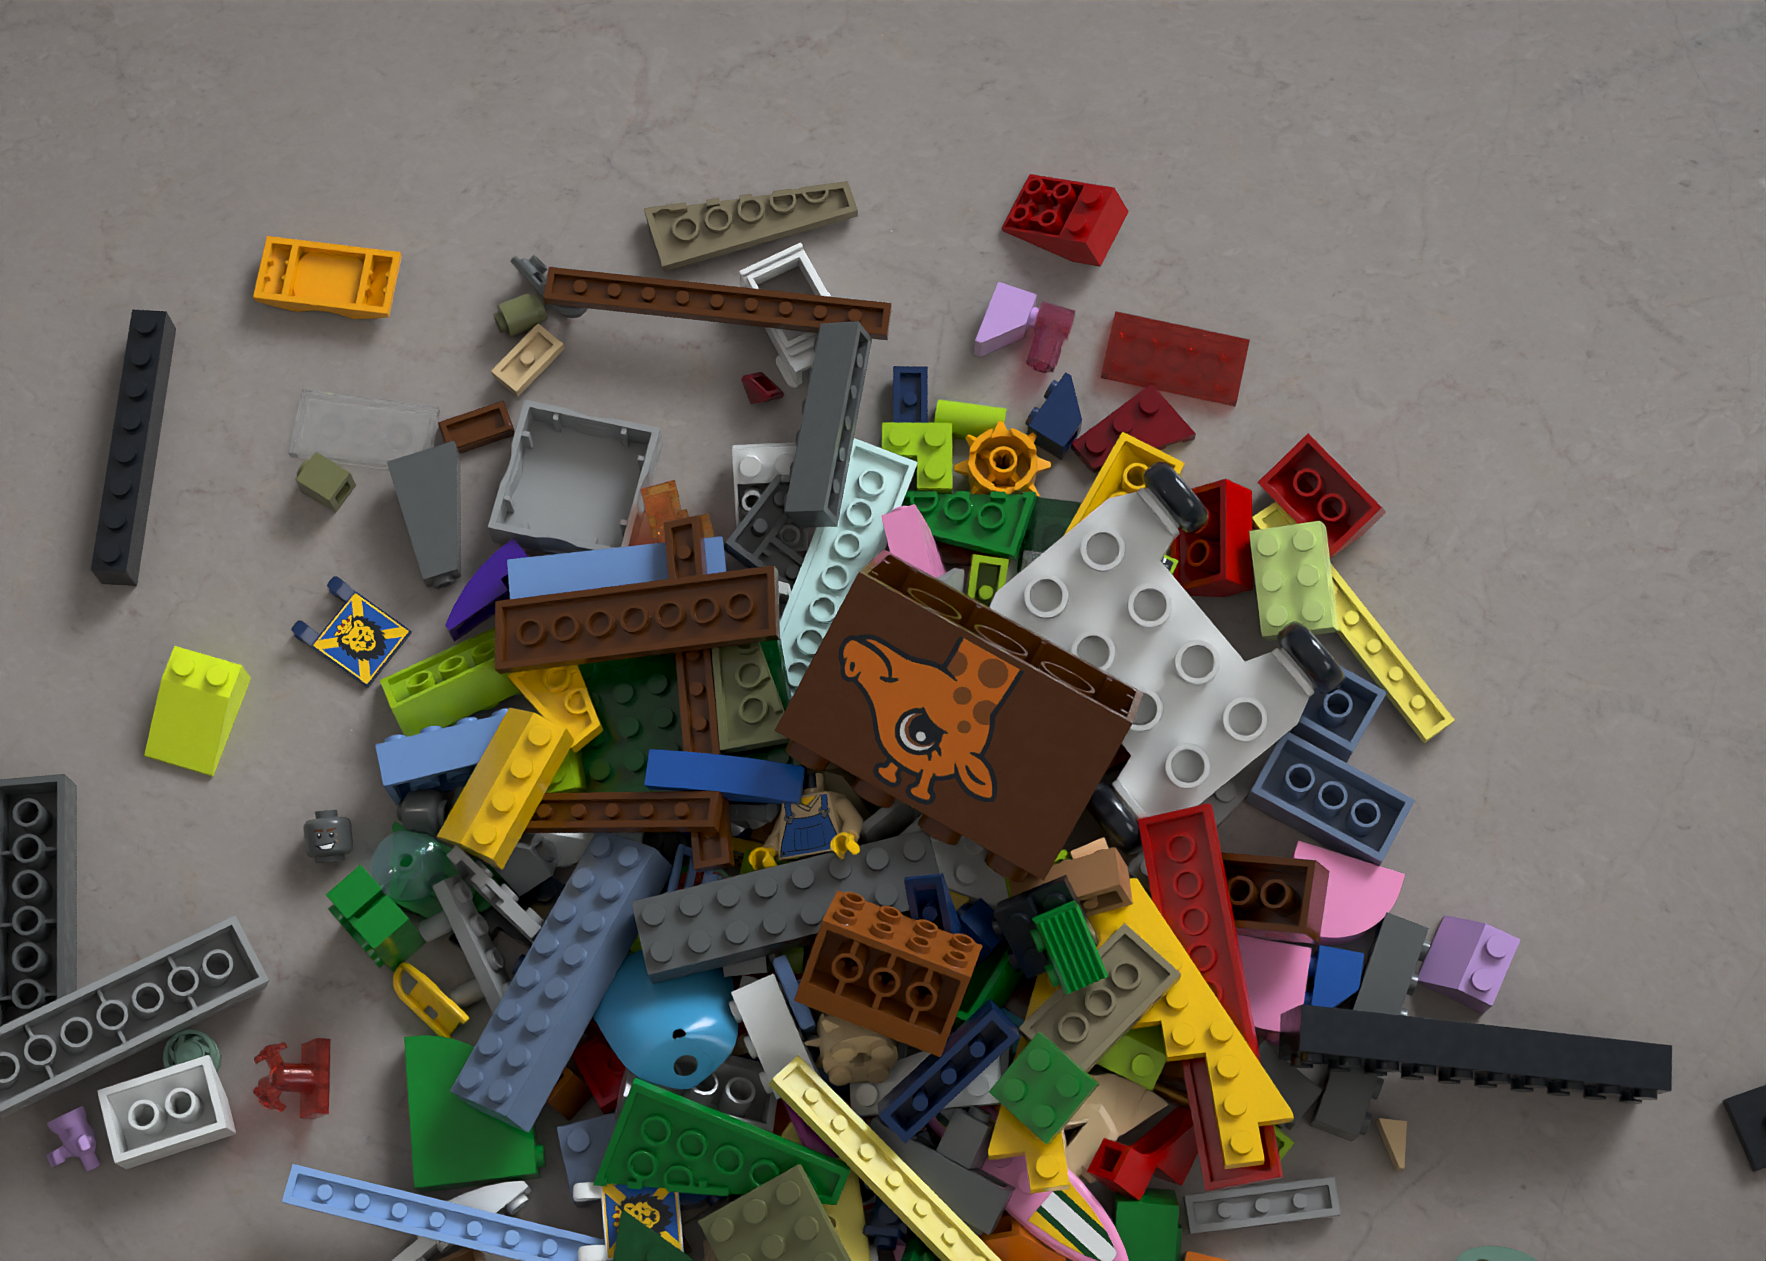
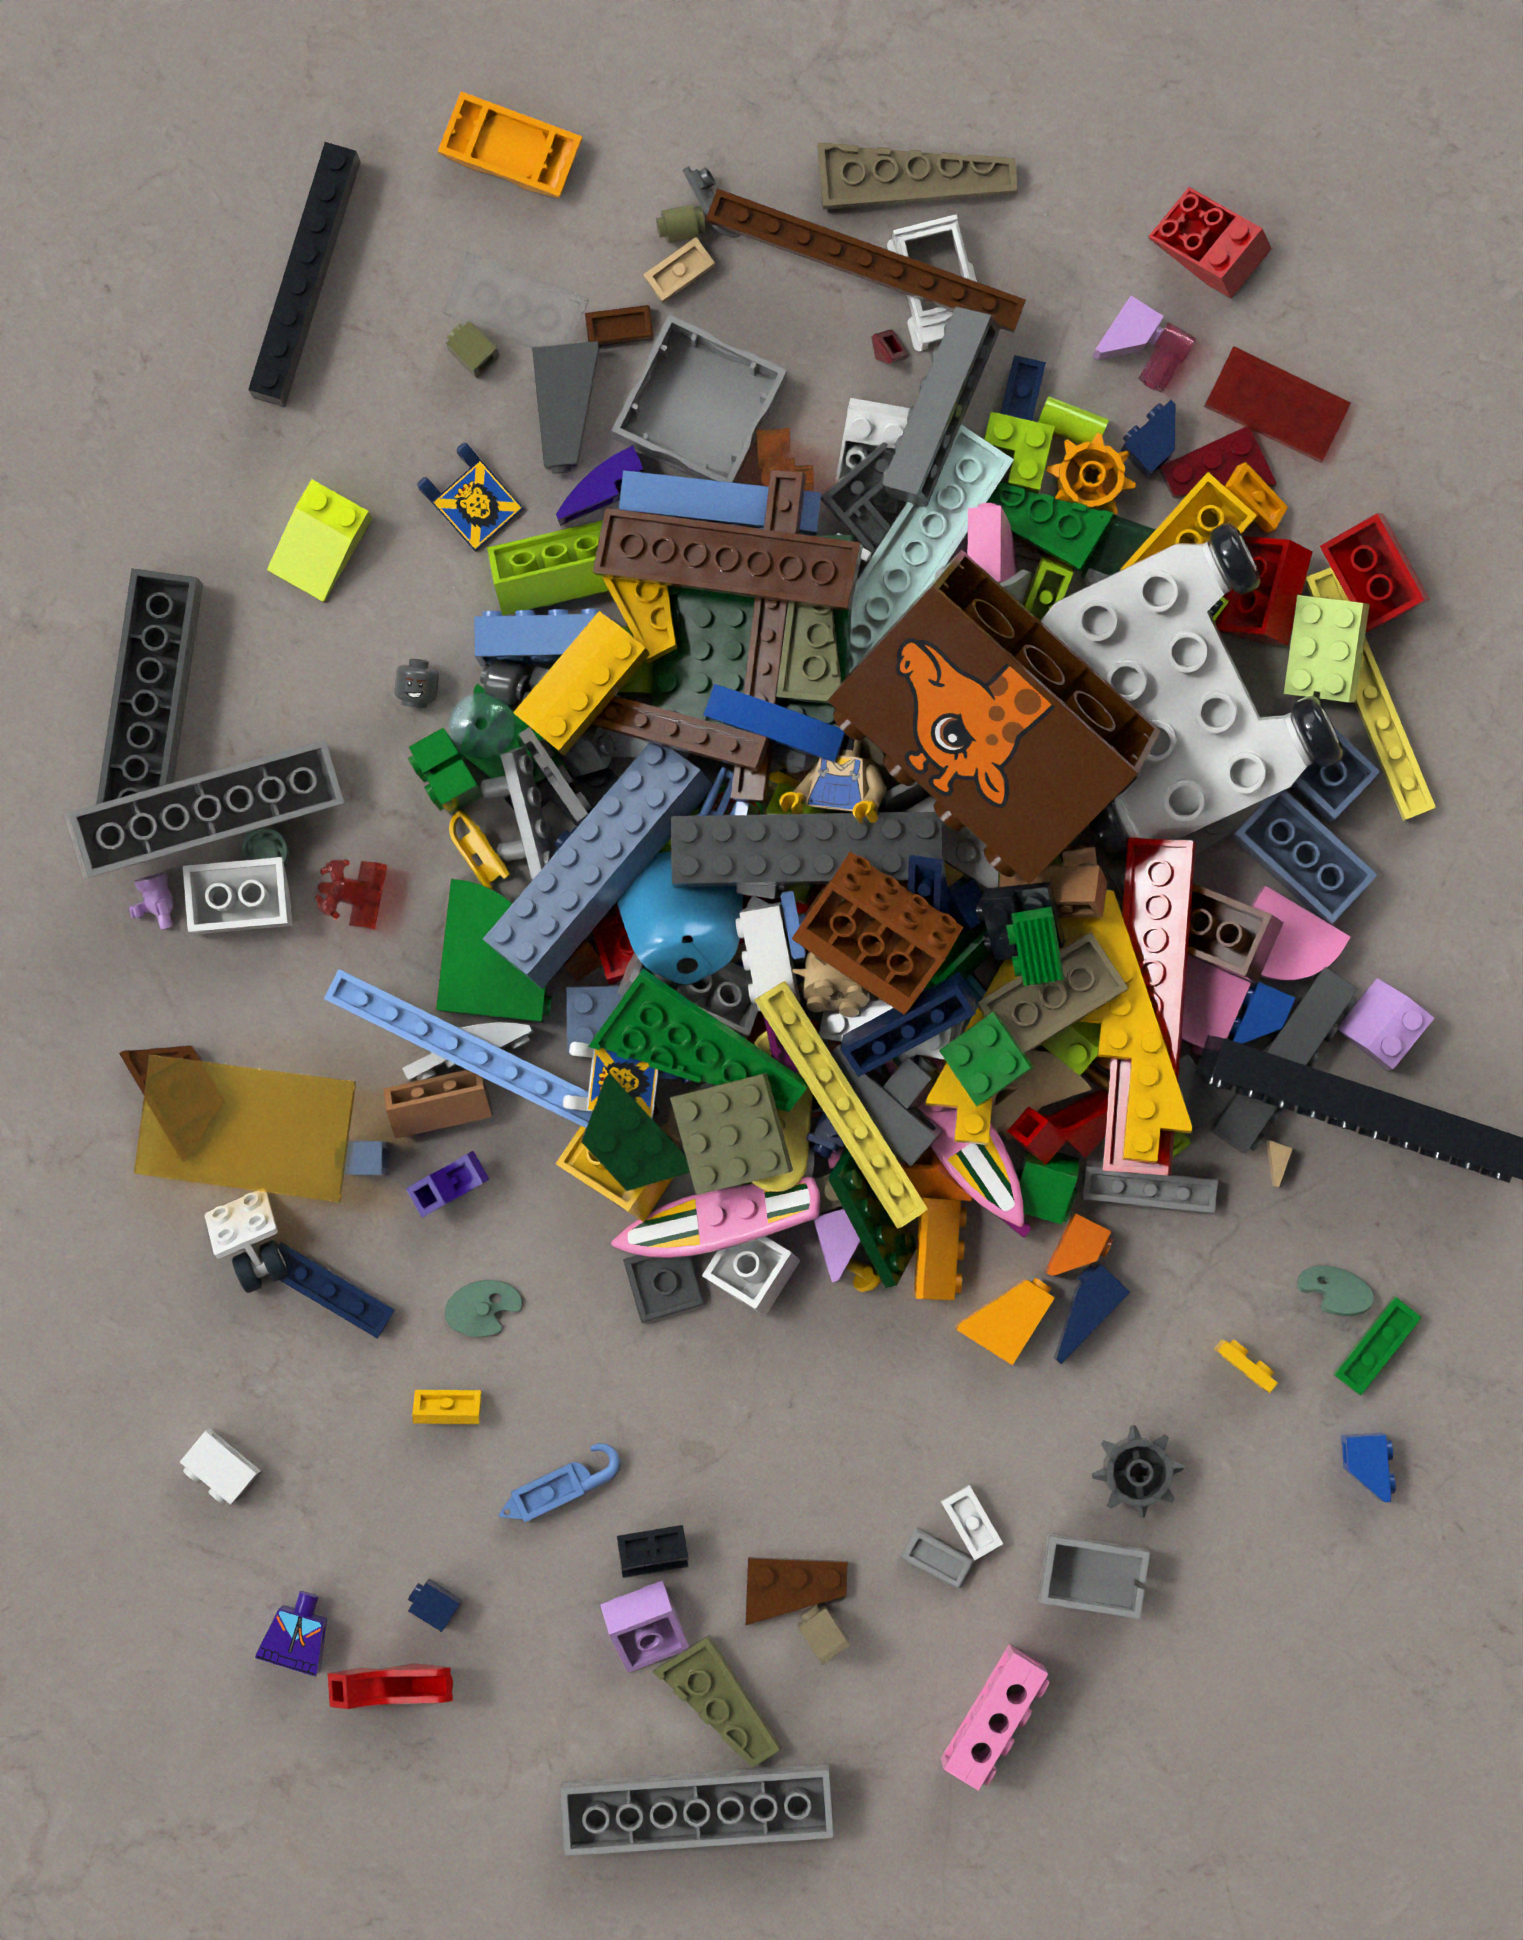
camera: 15 degrees right, 15 degrees up
(1180, 446) = (1257, 496): none -> light orange plate

